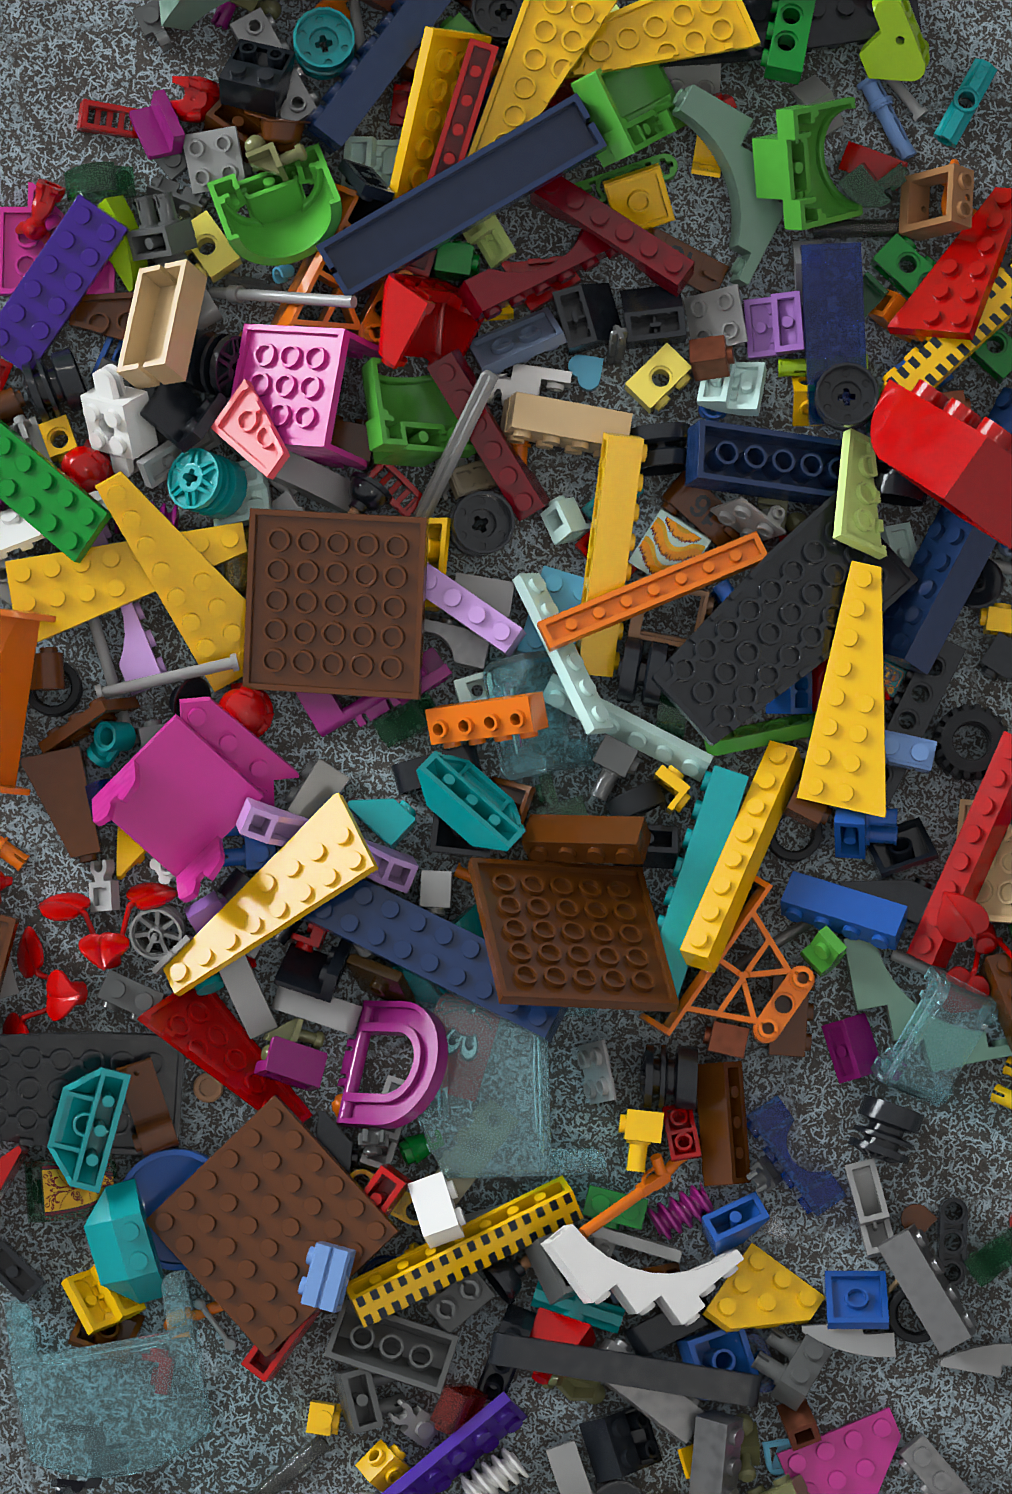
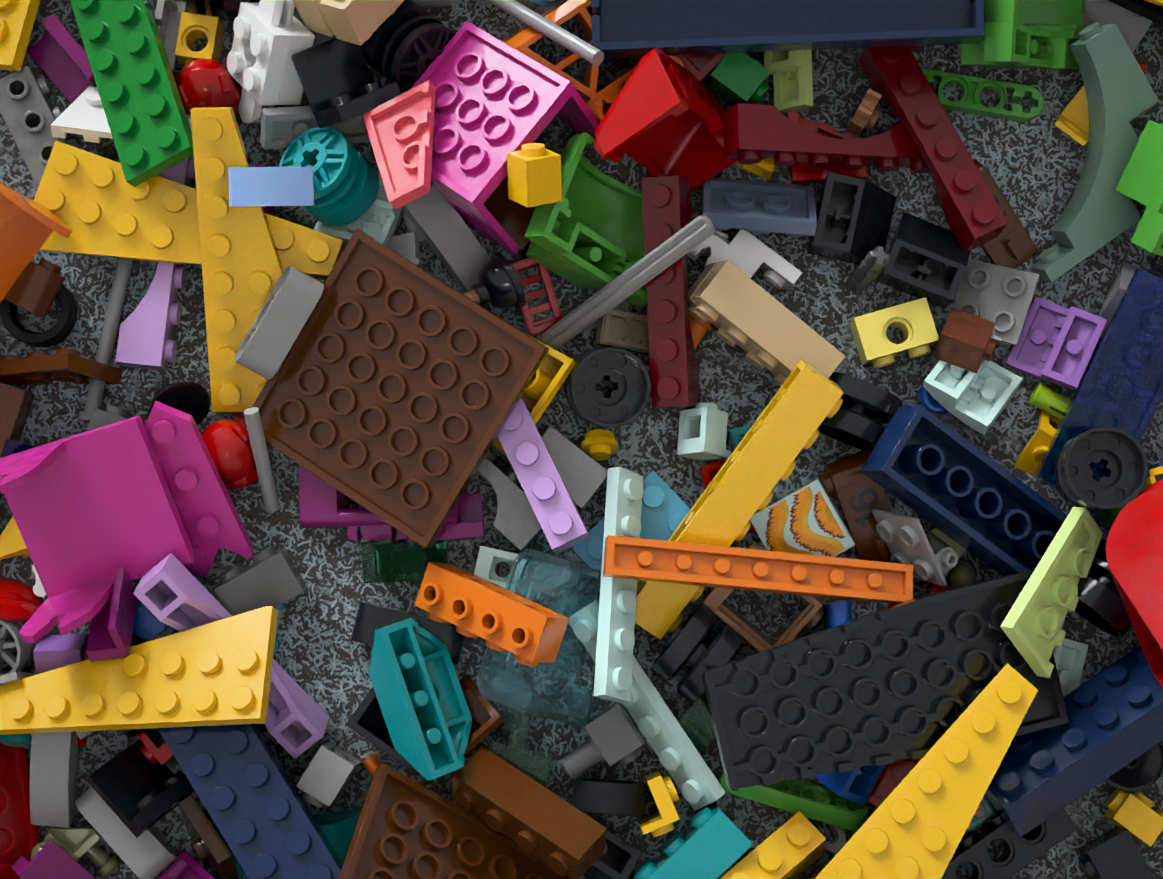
camera: 20 degrees right, 0 degrees up
(109, 741) = (63, 403): teal piece -> none
(168, 677) = (164, 368): light grey bar -> none
(177, 510) = (270, 186): none -> light blue slope
(232, 601) = (279, 322): none -> light grey beam
(236, 871) = (113, 625): none -> magenta panel
(270, 704) = (262, 459): none -> light grey bar
(355, 405) = (534, 175): none -> yellow brick
(386, 818) = (317, 660): teal slope -> none
(497, 567) = (599, 444): none -> yellow plate
(556, 236) = (866, 113): none -> nougat plate
(586, 370) = (818, 280): medium azure tile -> none
(640, 197) = (984, 120): yellow plate -> none

